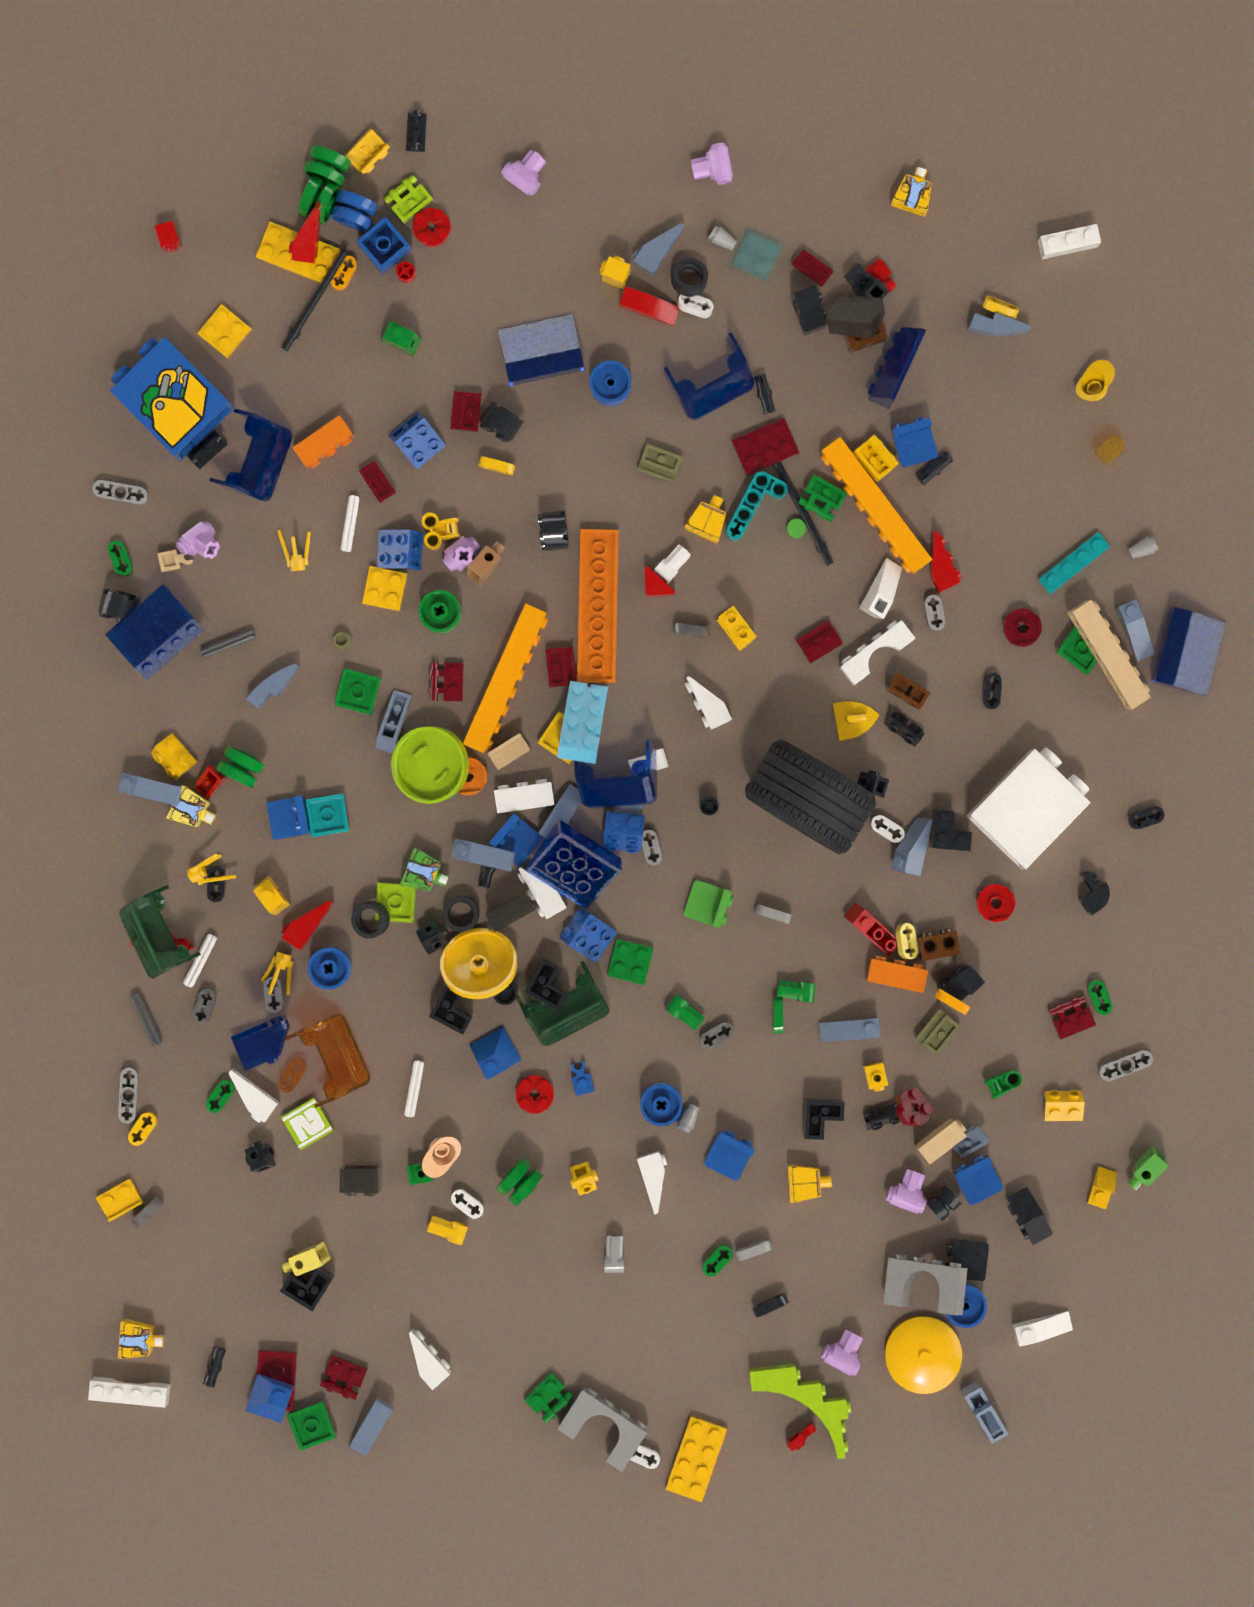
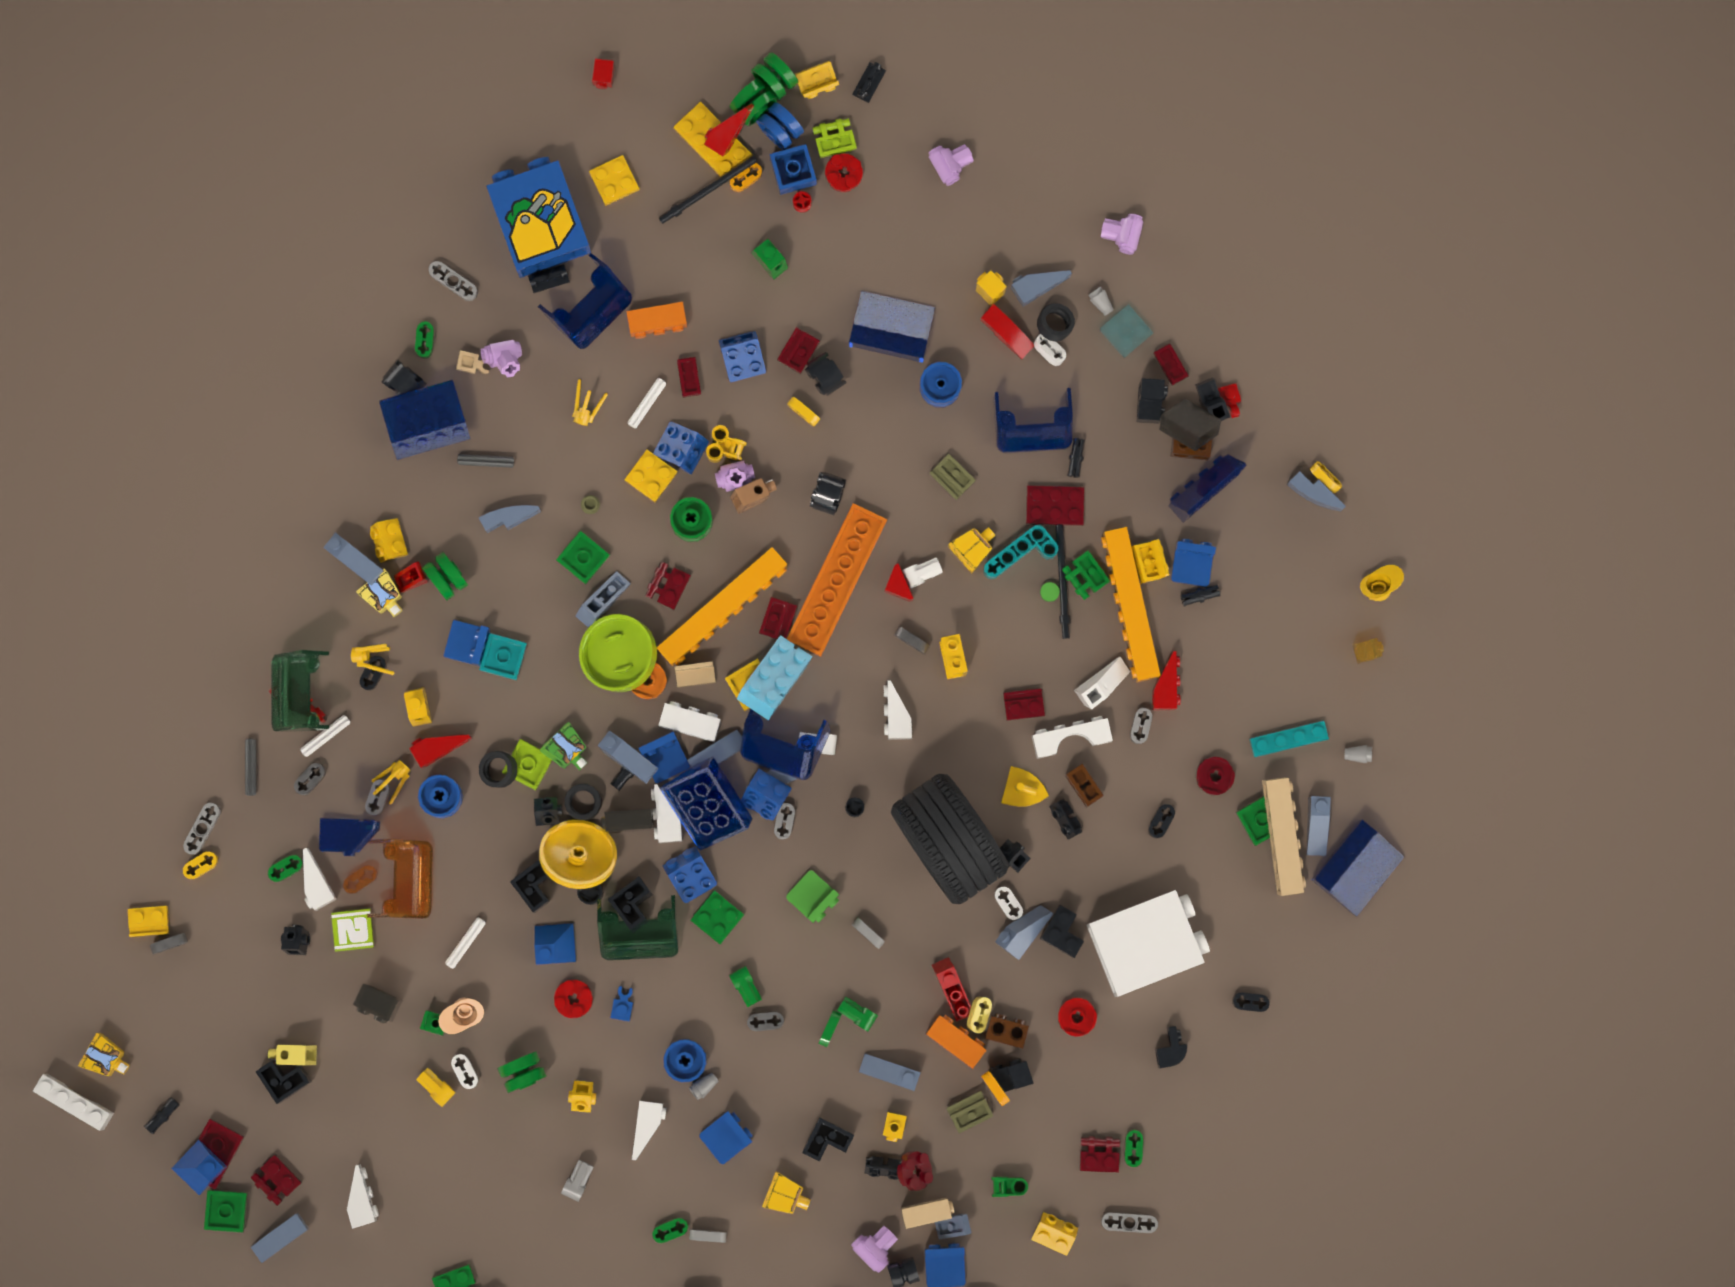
camera: 15 degrees right, 5 degrees down
(913, 193) = (1292, 339): torso -> none
(1069, 241) = (1414, 446): white brick -> none

